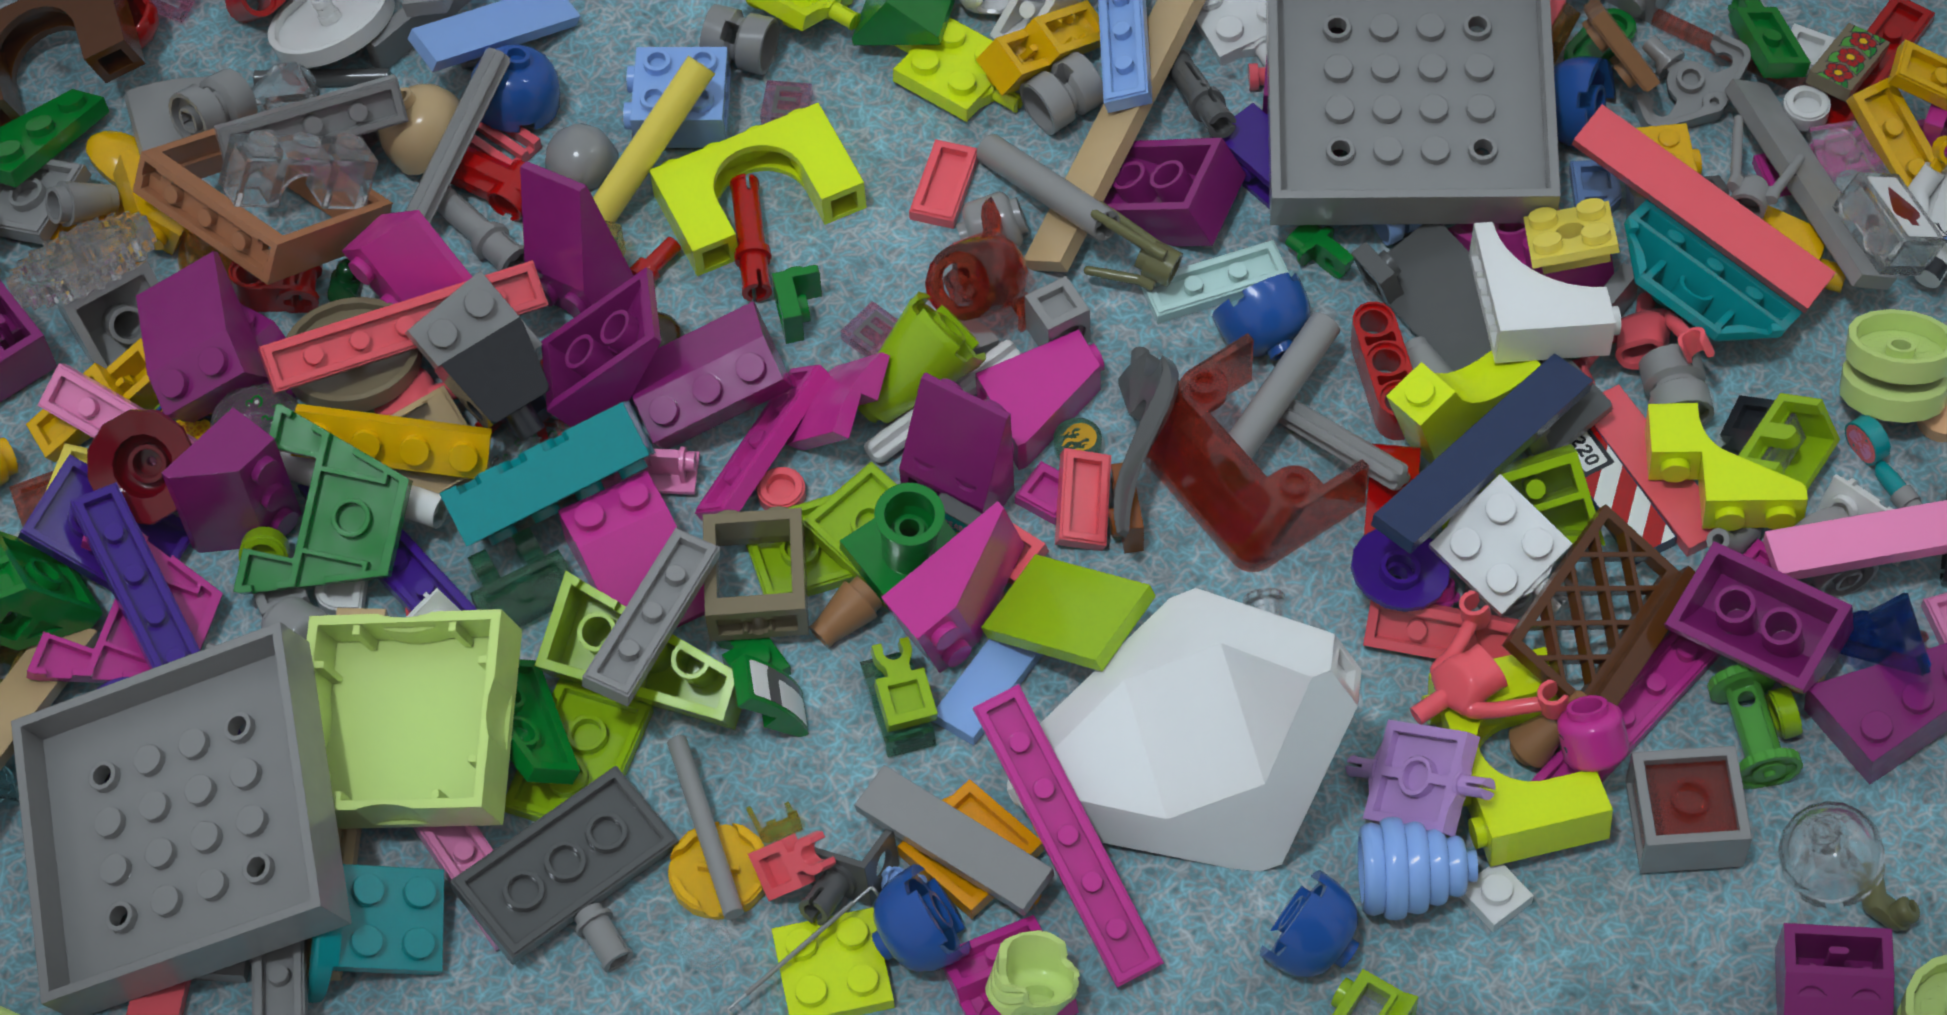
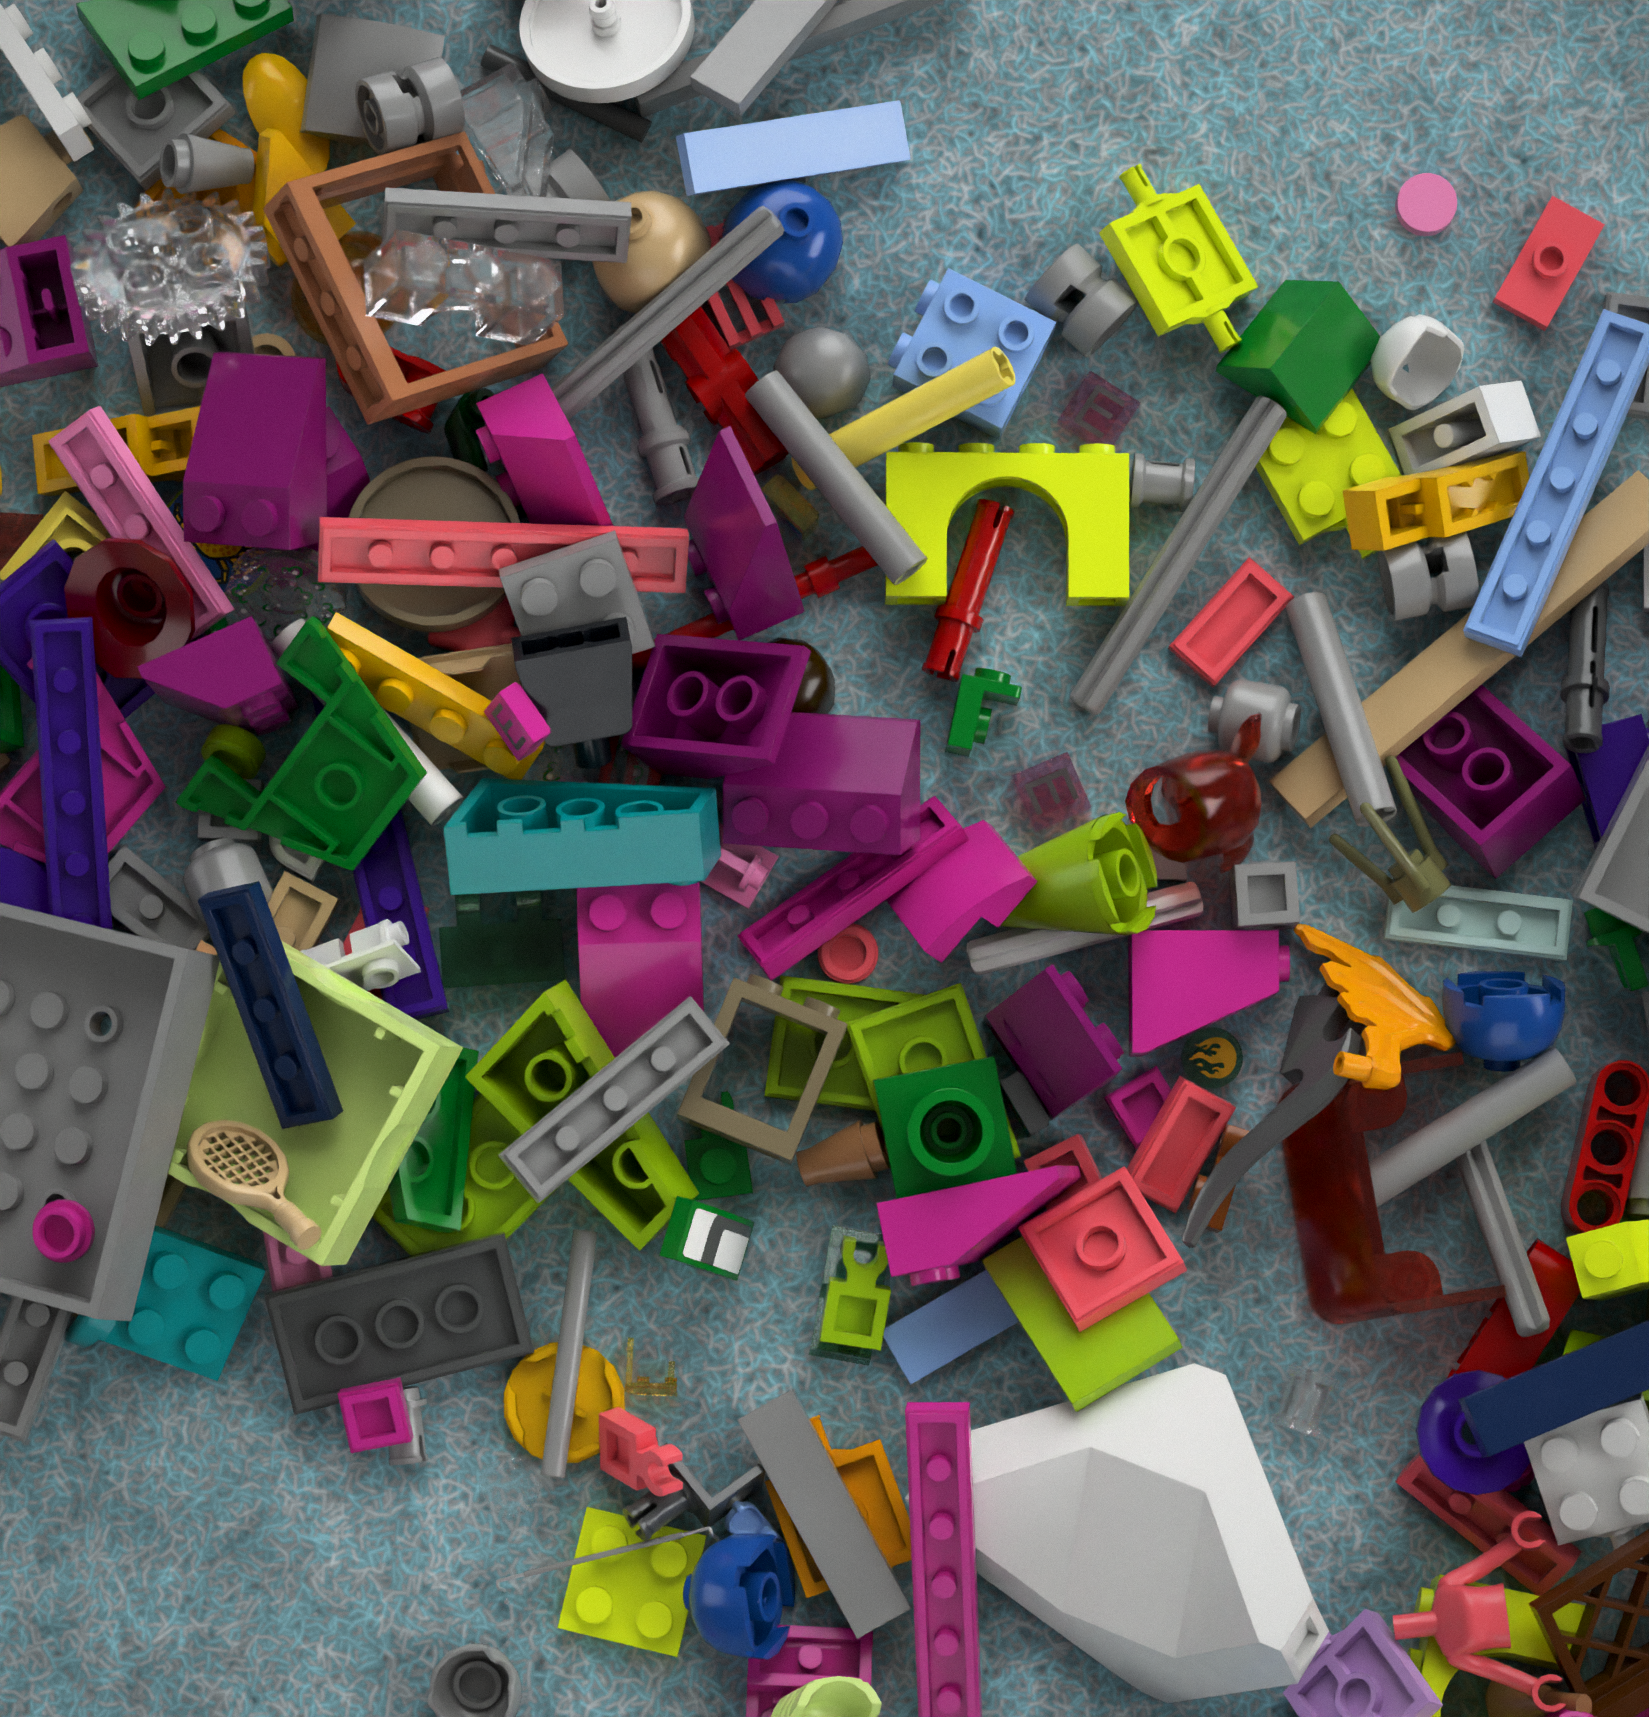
camera: 20 degrees right, 25 degrees up
(269, 873) = (63, 1231): none -> dark pink plate
(362, 654) = (270, 1005): none -> dark blue tile
(400, 779) = (267, 1196): none -> tan piece
(462, 412) = (517, 721): none -> dark pink tile
(575, 926) = (375, 1415): none -> dark pink tile
(630, 194) = (835, 477): none -> light grey piece
(854, 119) = (1161, 482): none -> light grey bush
(885, 154) = (1178, 555): none -> light grey axle
(1063, 568) = (1102, 1249): none -> coral tile
(1174, 349) = (1383, 1002): none -> light orange animal

